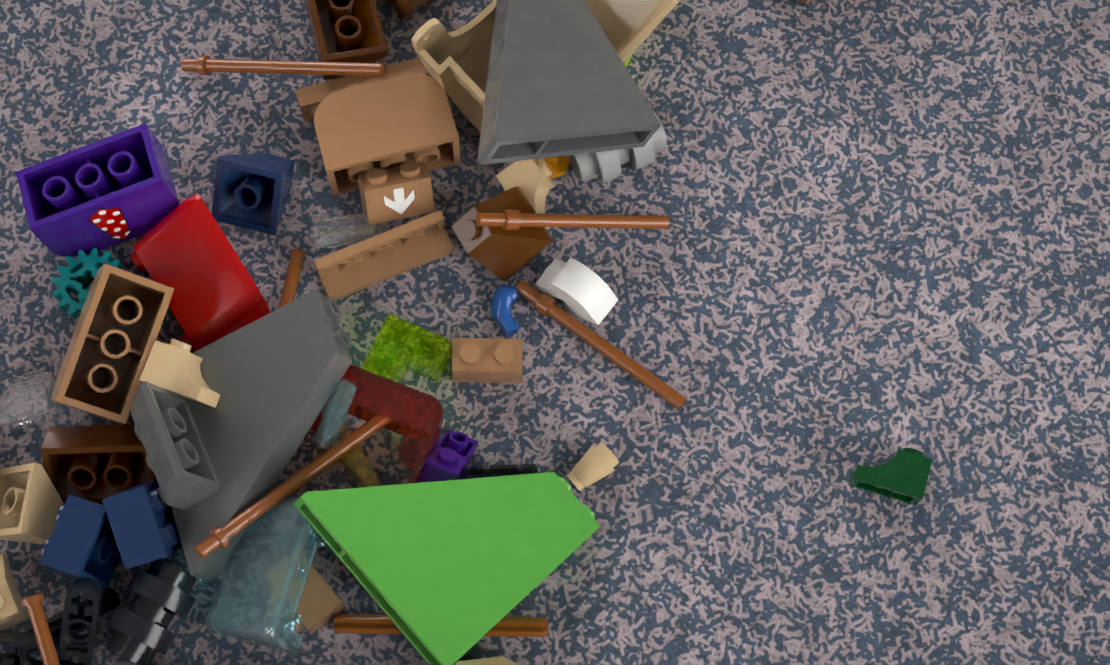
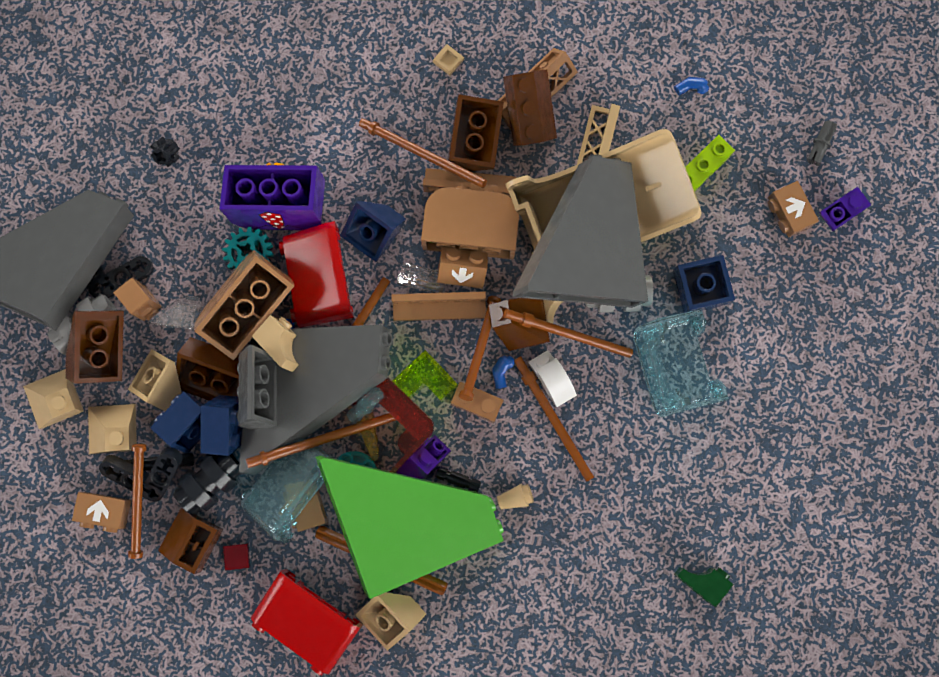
camera: 25 degrees right, 10 degrees up
(469, 347) = (466, 394): none -> dark orange bar
(723, 97) = (704, 284): none -> dark blue brick
(729, 210) = (676, 365): none -> clear light blue windscreen

